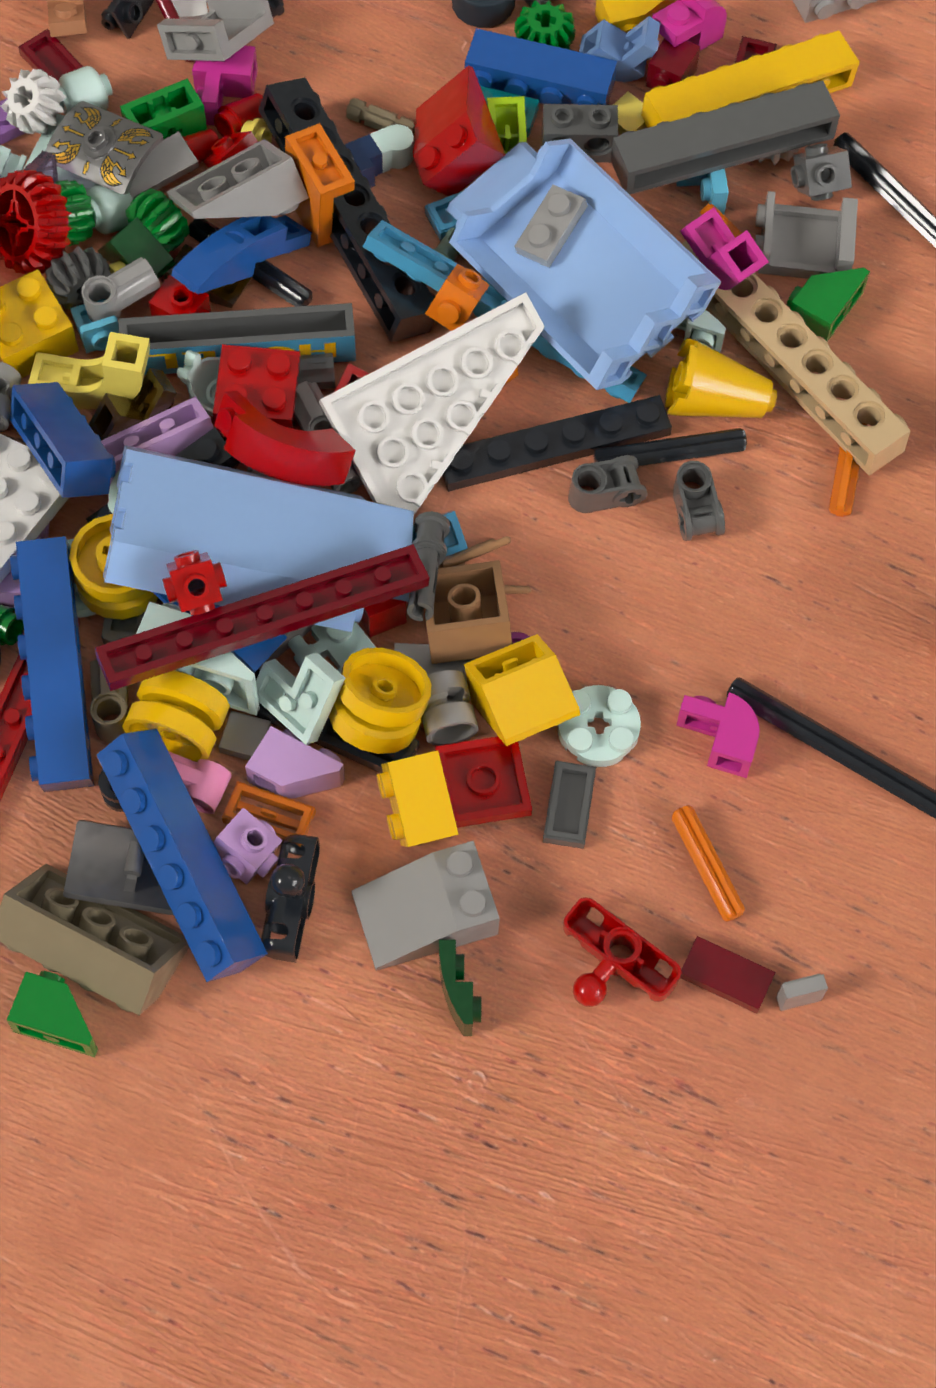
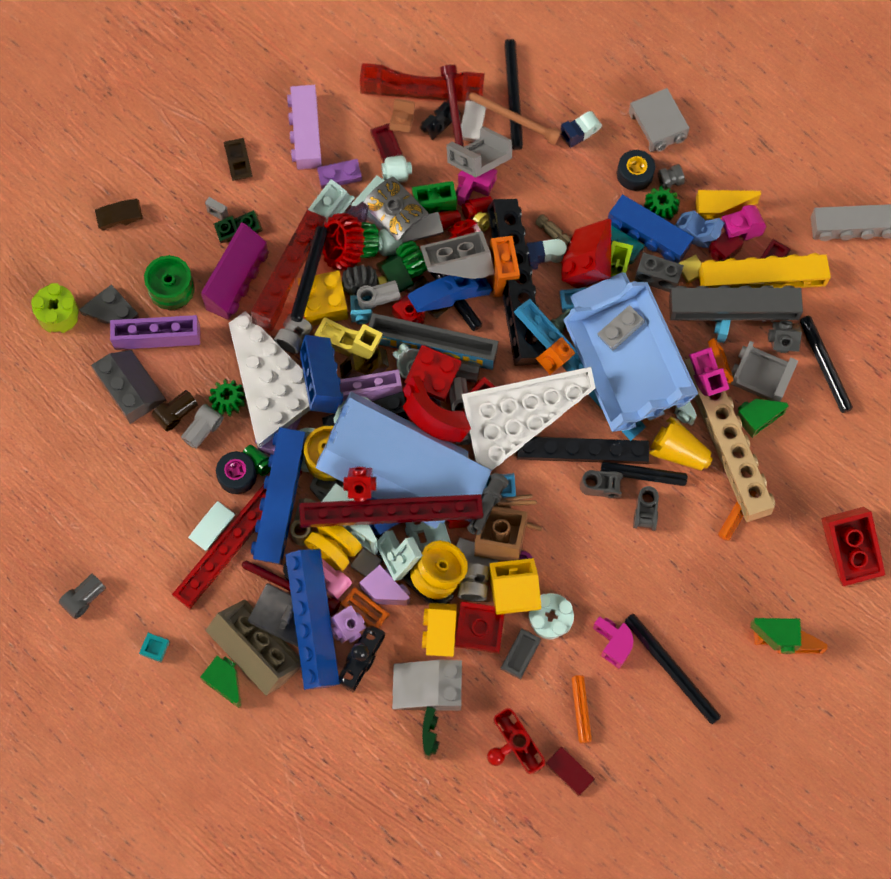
camera: 20 degrees right, 5 degrees up
(33, 101) = (366, 169): white gear -> none
(102, 813) = (333, 603): none -> dark red piece
(802, 991) = (603, 793): light grey tile -> none

